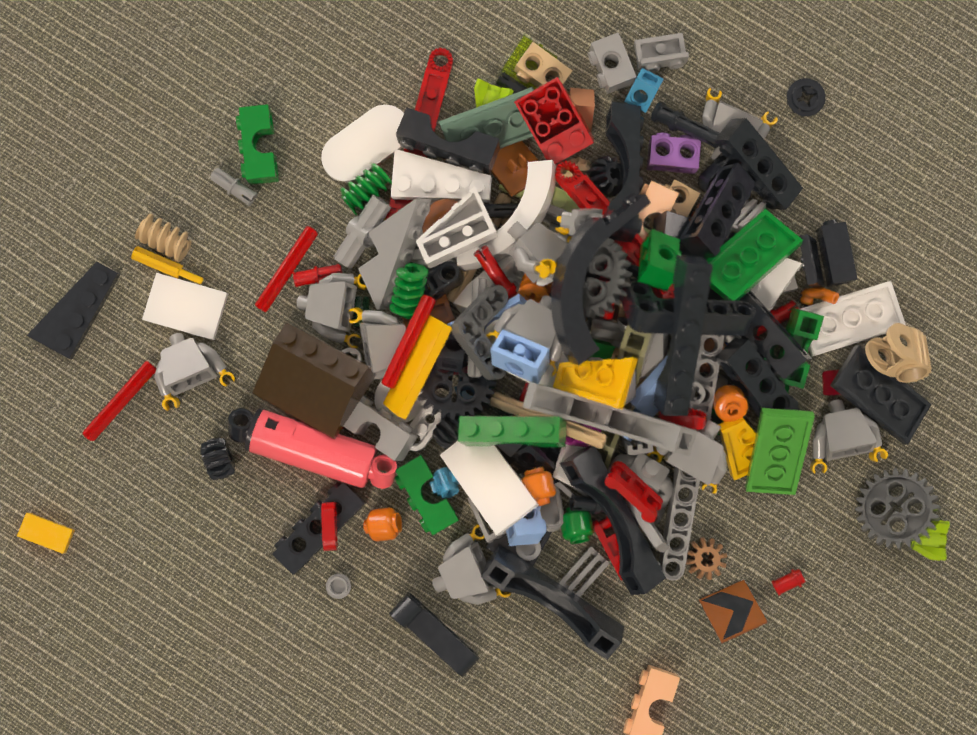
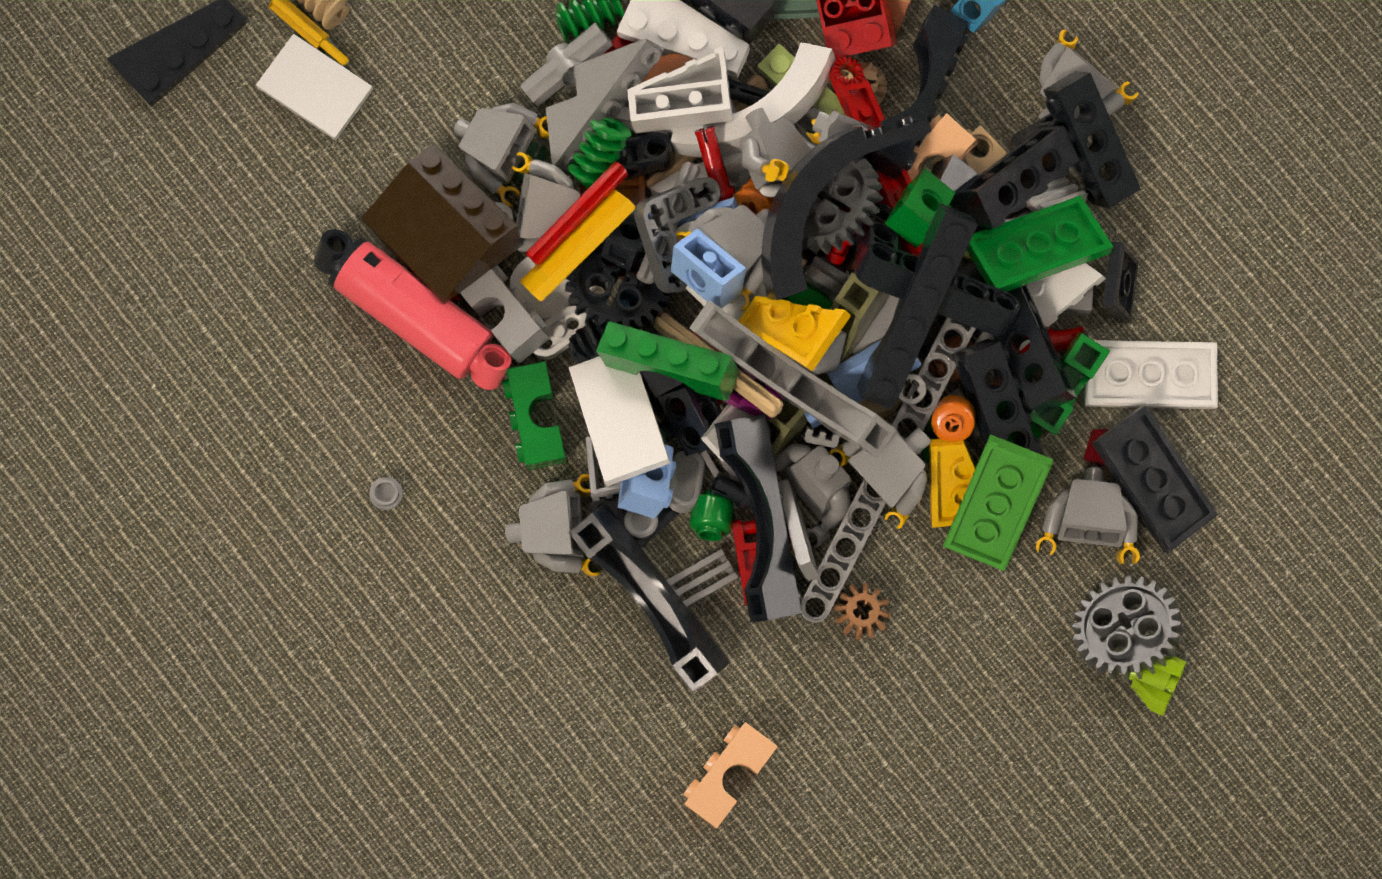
camera: 20 degrees right, 5 degrees down
(45, 533) = (45, 307): yellow tile -> none
(119, 401) = (192, 176): red axle -> none
(185, 367) = (290, 159): light grey torso -> none
(217, 458) = (290, 283): black gear -> none
(285, 550) = (377, 428): black brick -> none
(286, 269) = (456, 81): red axle -> none
(314, 275) = (485, 99): red axle -> none
(329, 526) = (401, 409): red beam -> none
(383, 524) = (468, 434): orange head -> none
(434, 633) = (486, 590): black beam -> none
(444, 483) = (563, 407): dark azure gear -> none
(512, 167) = (779, 44): dark orange piece -> none
(540, 485) = (681, 443): orange head -> none
(606, 175) = (895, 91): black gear -> none
(634, 490) = (797, 487): red plate -> none
(674, 160) = (987, 104): medium lavender brick -> none
(677, 120) = (1009, 55): black pin -> none
(695, 419) = (898, 418): red beam -> none
(733, 611) = (874, 688): dark orange piece -> none
(788, 582) = (958, 677): red pin -> none
(809, 87) = (1194, 70): black gear -> none
(819, 293) = (1119, 328): orange arm -> none
(836, 253) = (1157, 285): black brick -> none
(903, 362) = (1198, 446): tan piece -> none

